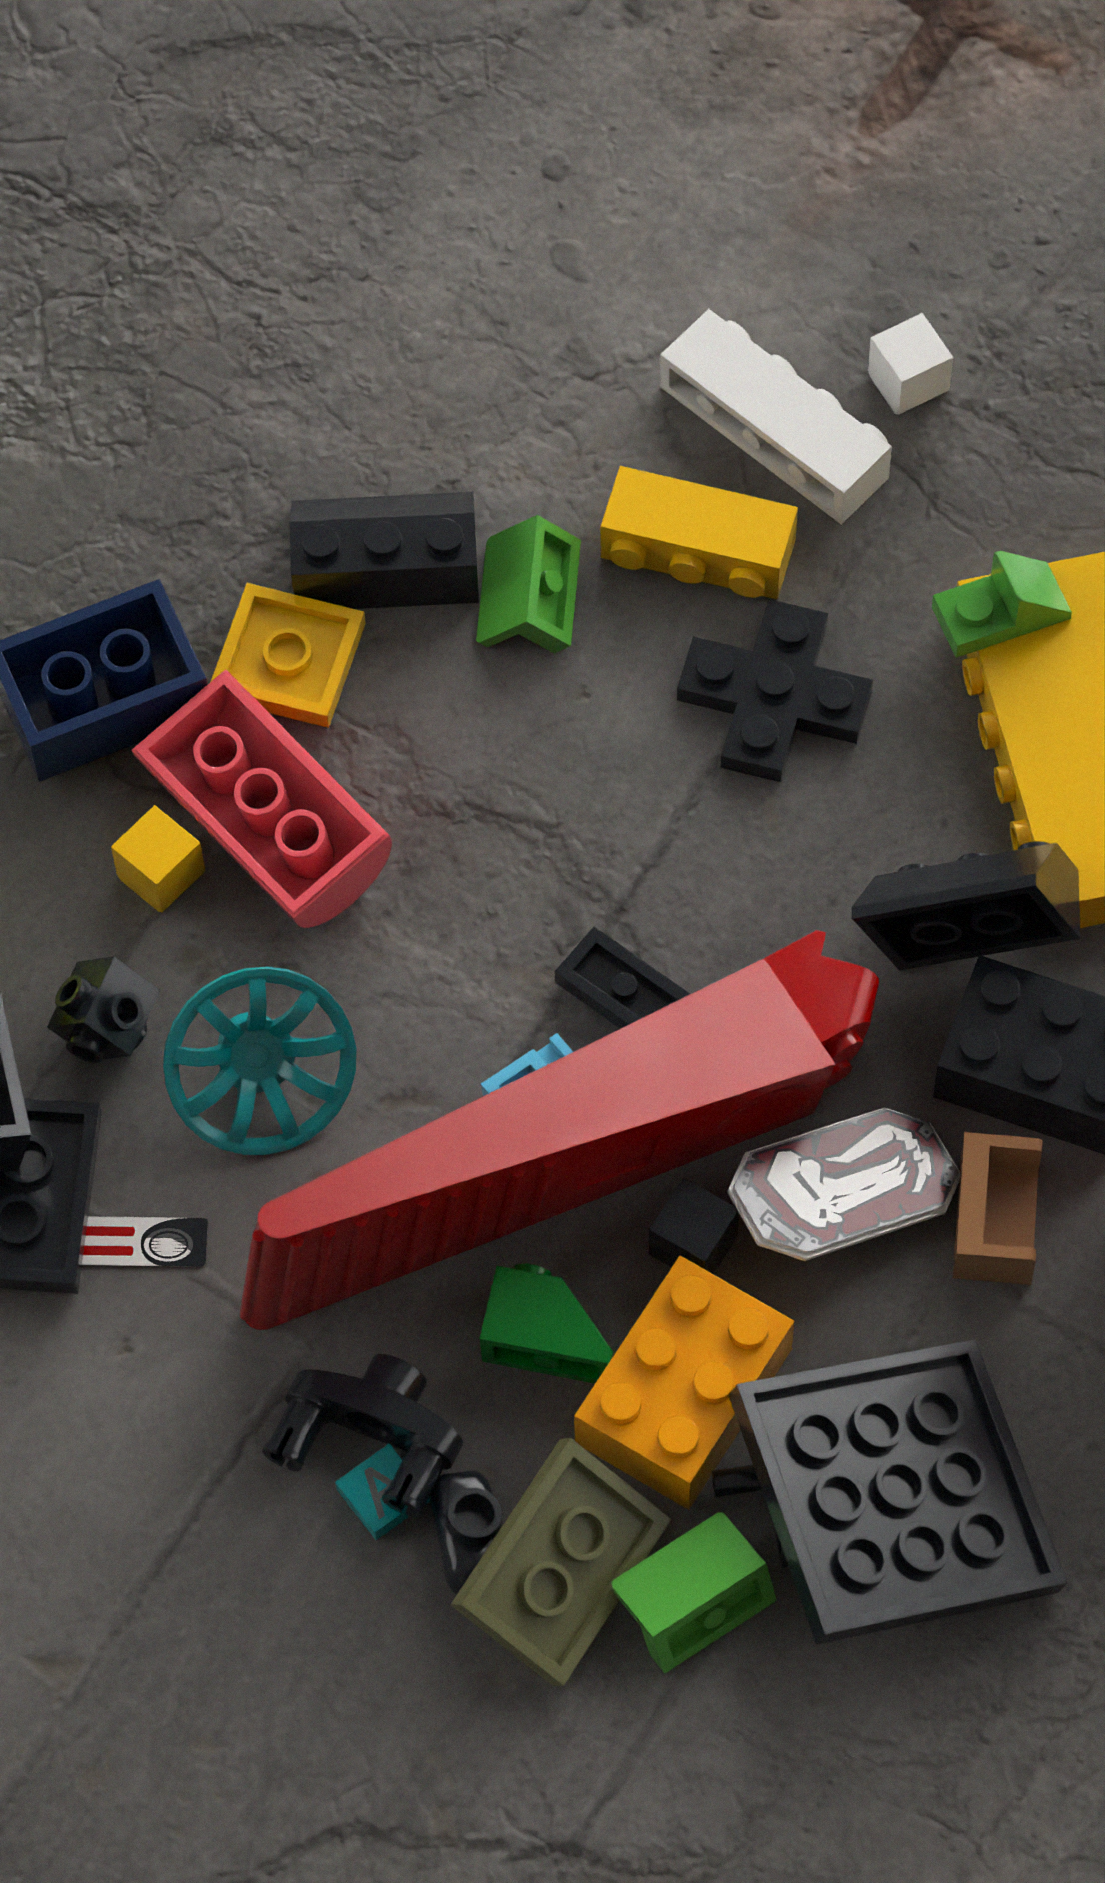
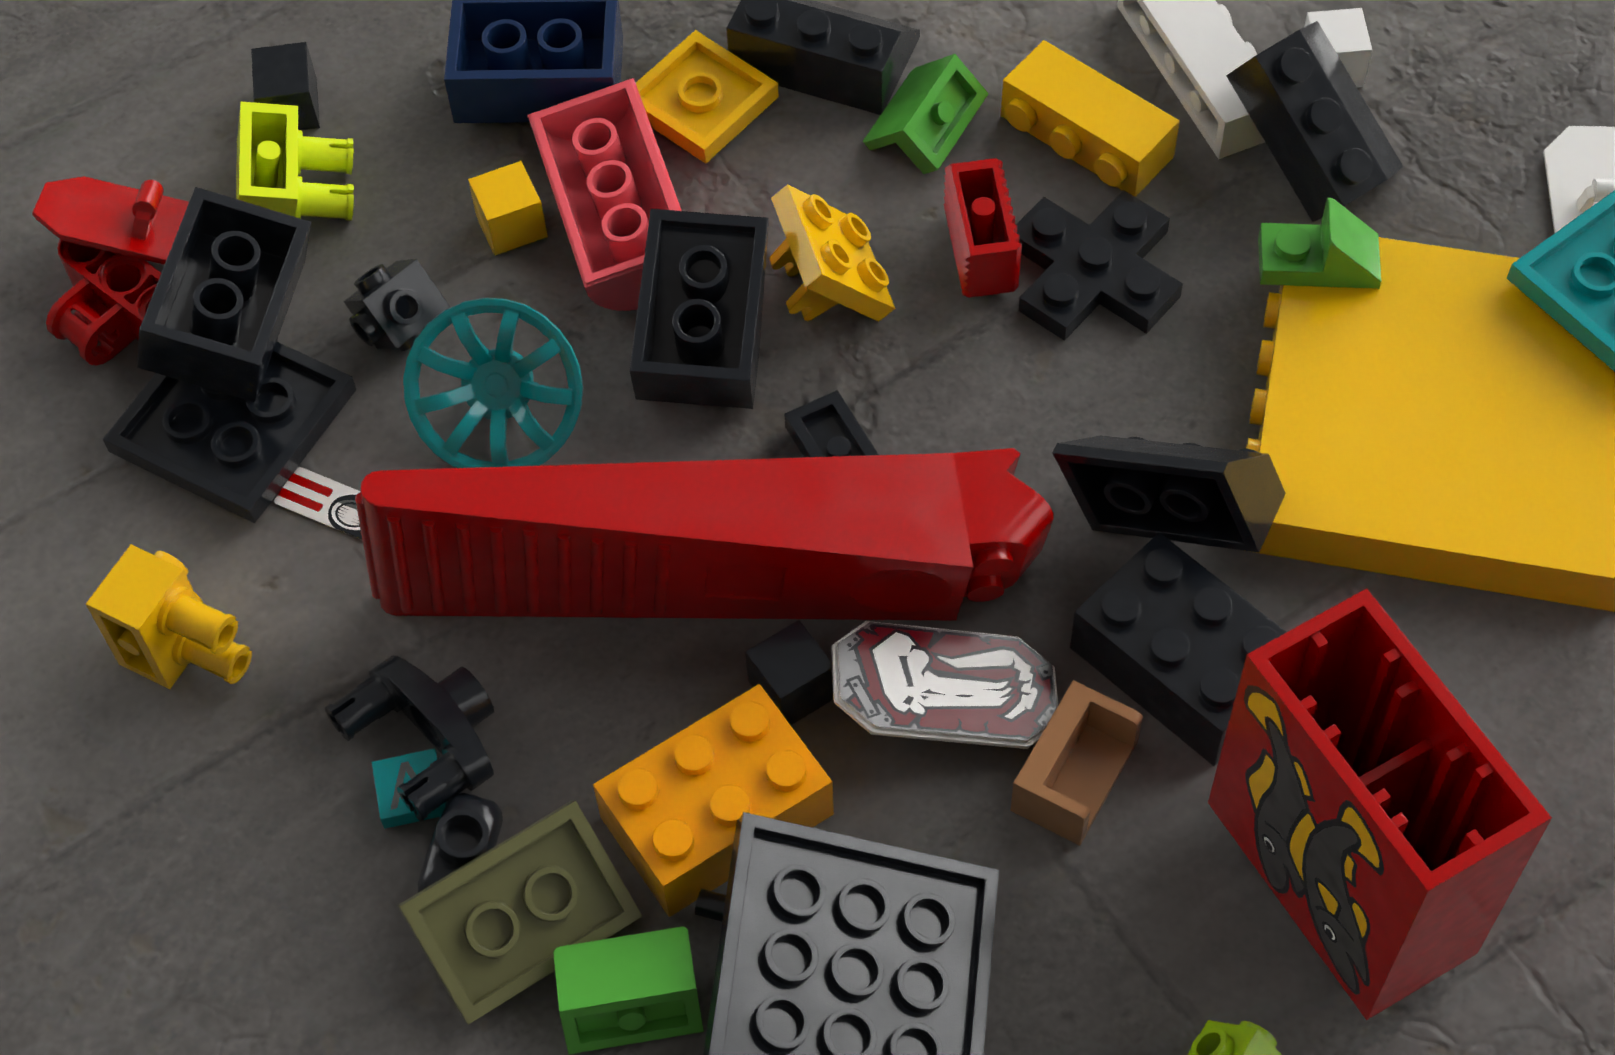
camera: 25 degrees right, 5 degrees down
(62, 1429) = (161, 623): none -> yellow brick
(425, 895) = (700, 309): none -> black slope
(522, 785) = (830, 255): none -> yellow plate
(540, 1326) = (610, 696): green slope -> none
(654, 697) = (982, 227): none -> red brick
(932, 459) = (1314, 120): none -> black slope

